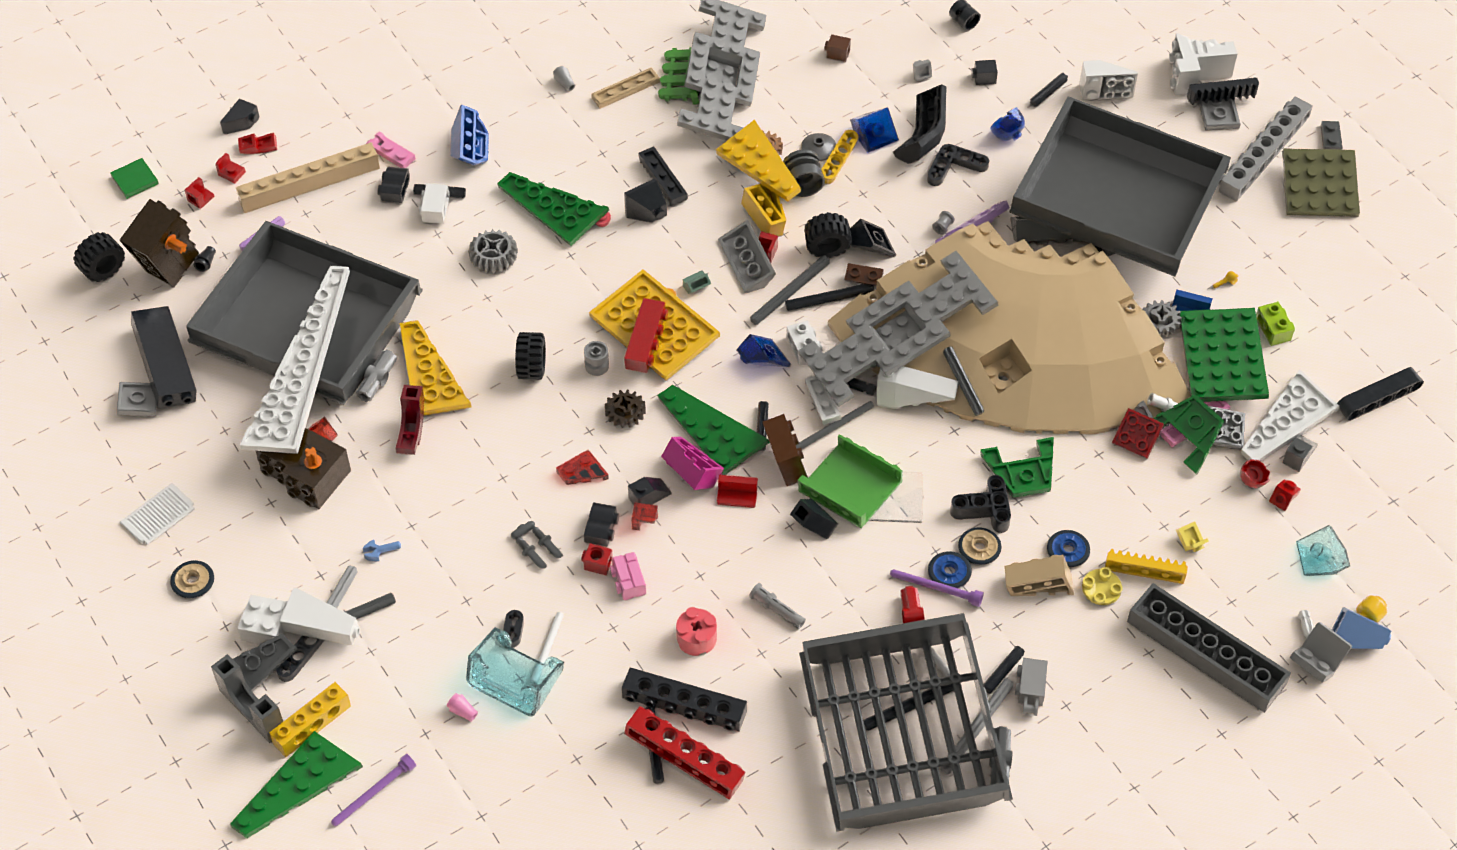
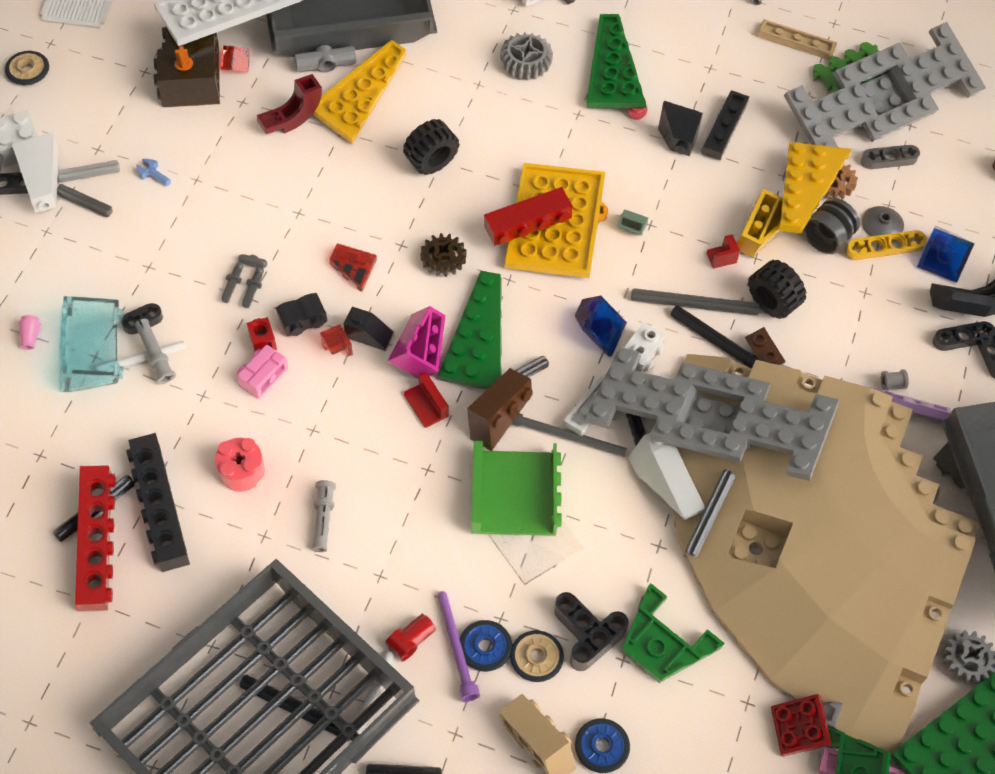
camera: 50 degrees right, 5 degrees up
(562, 635) = (157, 359): none -> light grey pin
(596, 358) = (477, 198): light grey wheel -> none
(747, 257) = (696, 244): light grey slope -> none
(771, 112) = (896, 151): none -> dark grey beam
(814, 518) = (444, 482): black slope -> none
(871, 238) = (815, 329): black slope -> none
(1160, 402) = (856, 724): white pin -> none

